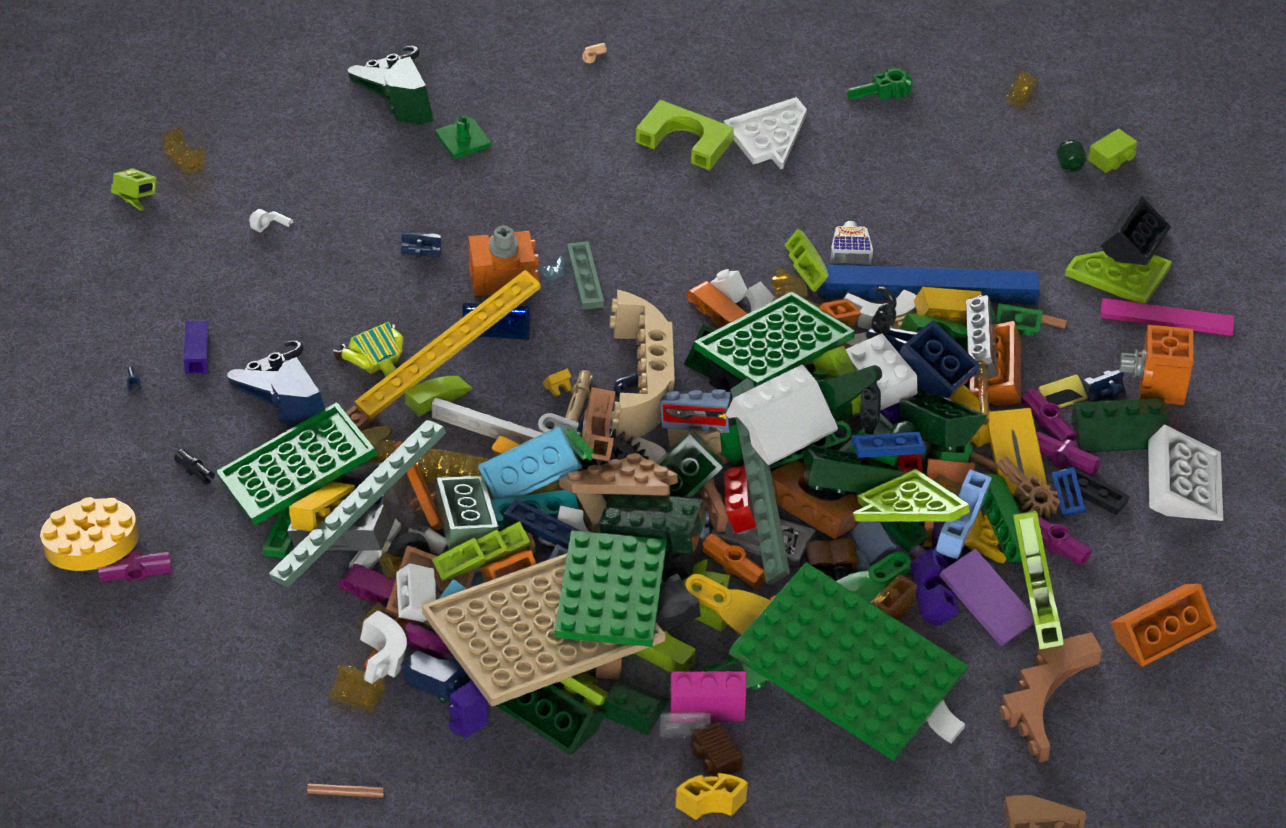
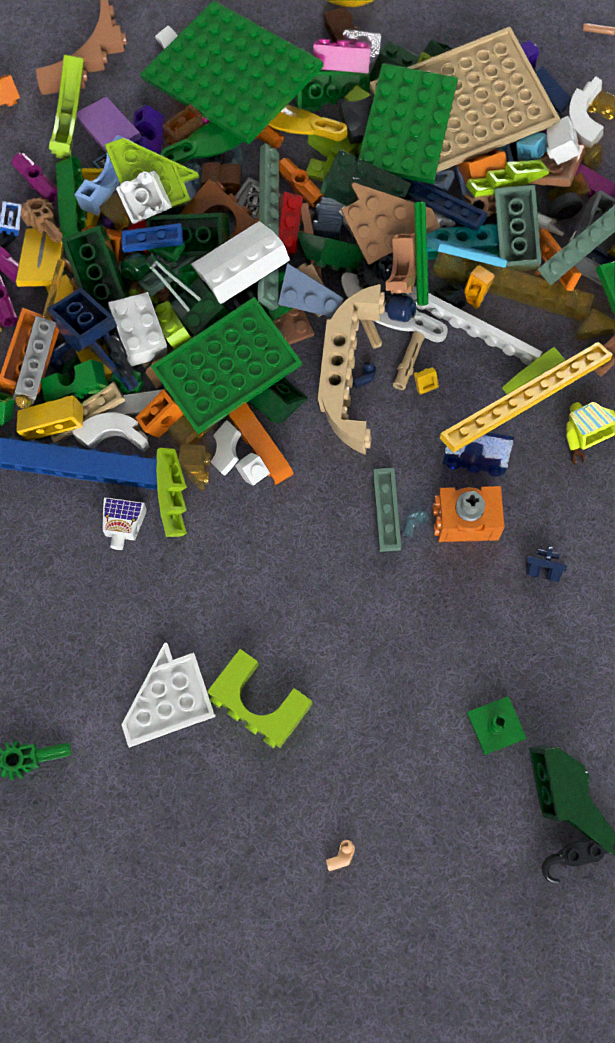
camera: 170 degrees left, 25 degrees up
(906, 476) = (143, 196): none -> white slope

